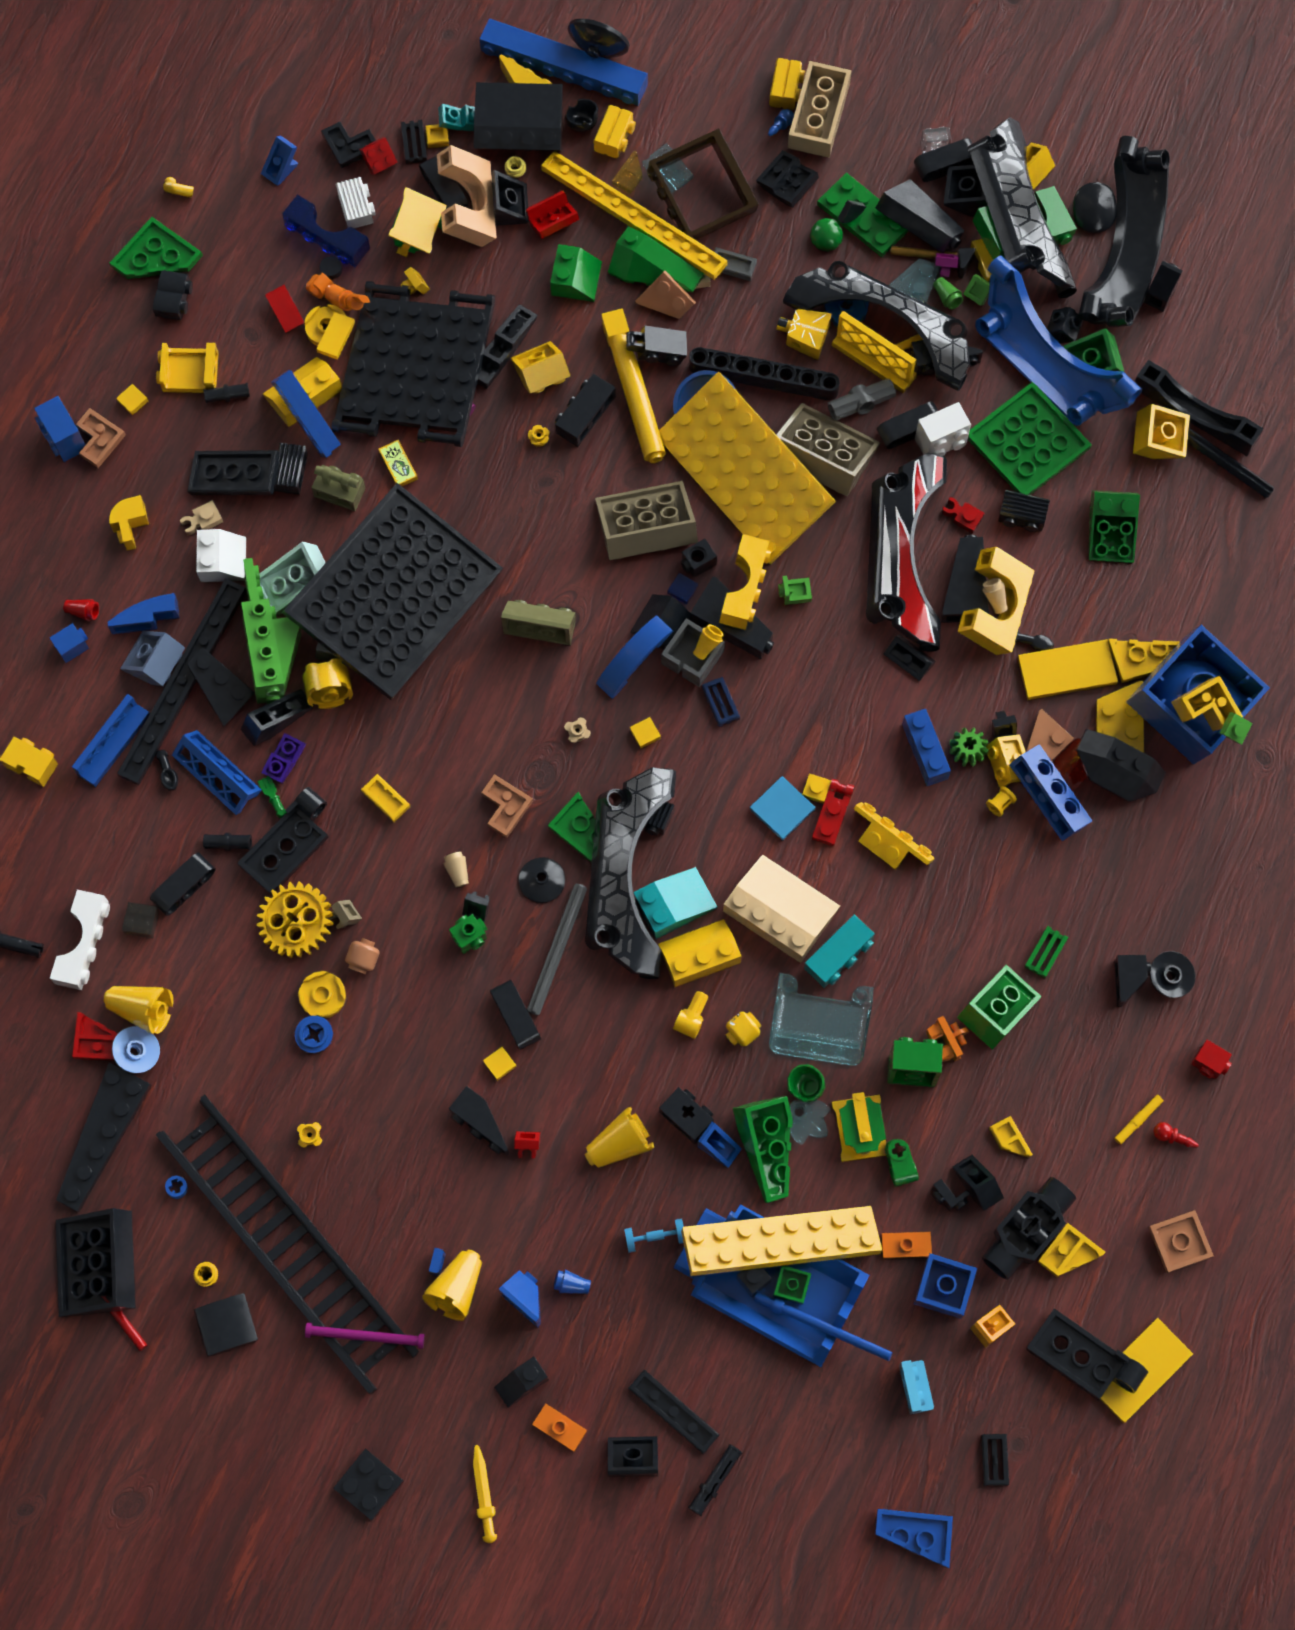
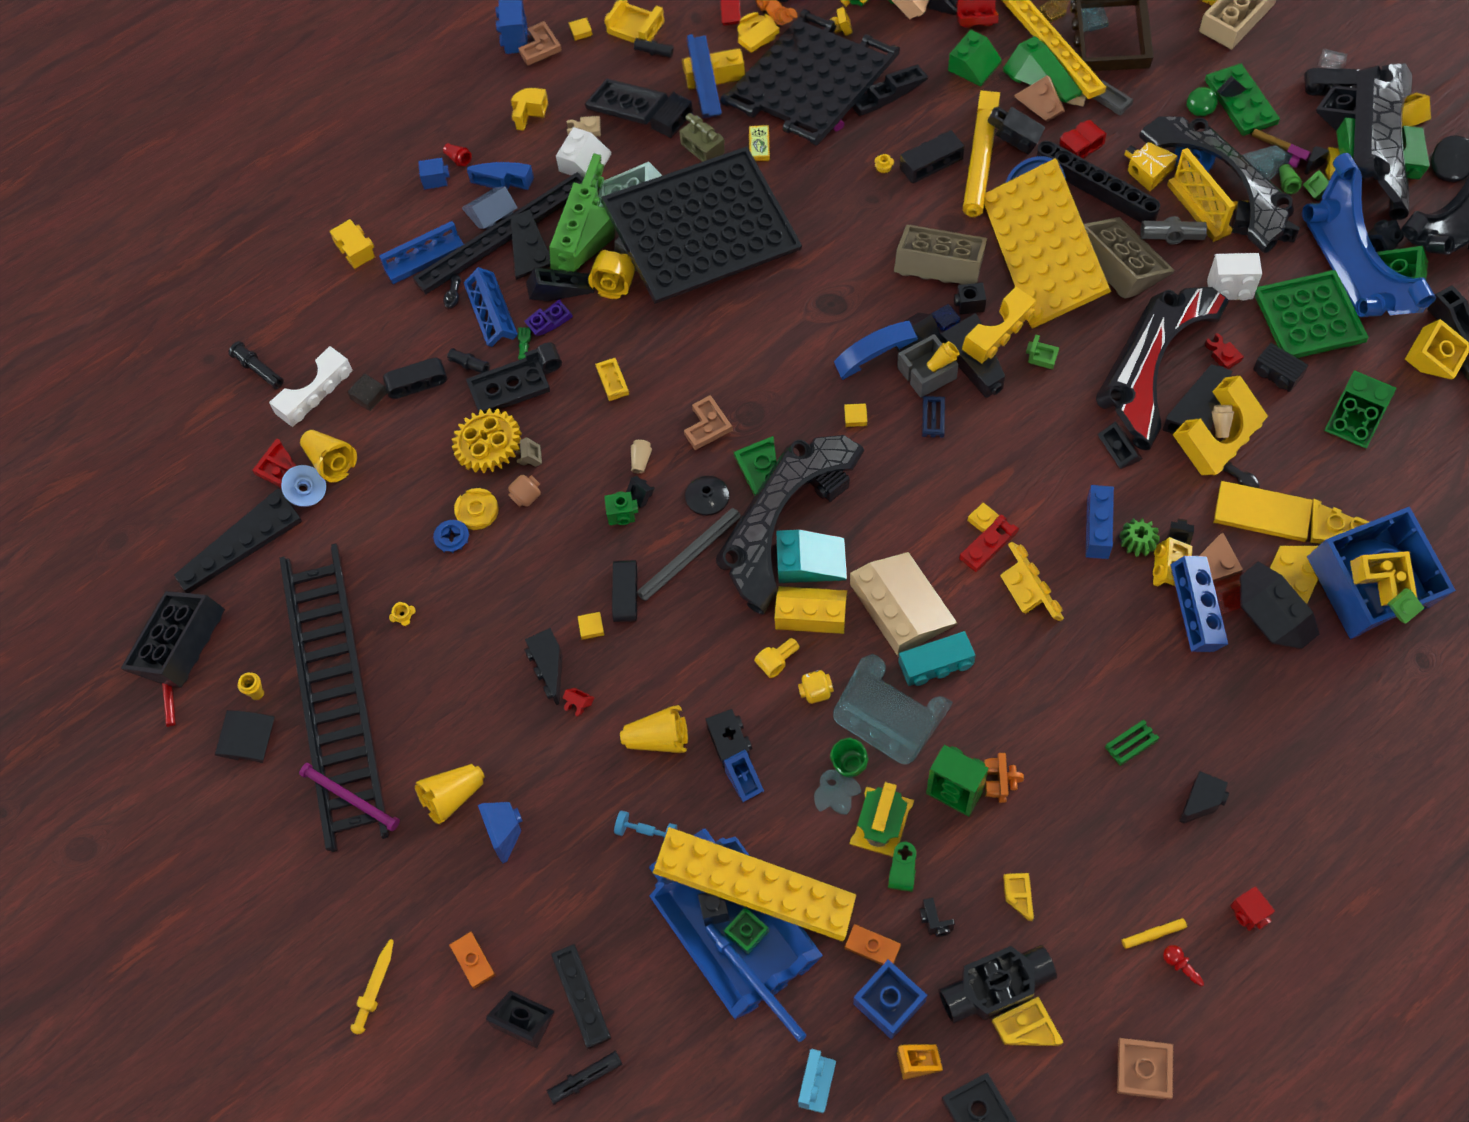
camera: 30 degrees right, 10 degrees down
(169, 1185) = (277, 612): blue bush -> none
(368, 1484) = (282, 929): black plate -> none
(437, 1262) = (446, 762): blue tile -> none
(521, 1382) = (461, 901): black slope -> none
(538, 622) = (808, 295): olive slope -> none
(541, 367) = (911, 115): yellow slope -> none
(571, 1283) = (549, 836): blue cone -> none
(575, 736) = (799, 395): tan plate -> none
(728, 329) = (1083, 139): none -> red brick
(765, 1136) = (789, 789): green wedge -> none
(781, 122) = (1200, 11): blue bar -> none
(782, 808) = (945, 521): dark azure tile -> none
(787, 178) = (1188, 52): black slope -> none
(904, 426) = (1196, 264): black beam -> none
(920, 215) = (1291, 112): black slope -> none
(978, 1182) = (969, 920): black slope -> none
(999, 1007) = (1062, 770): green slope -> none
(1001, 801) = (1148, 594): yellow bush -> none
(1181, 970) = (1254, 807): black dish -> none

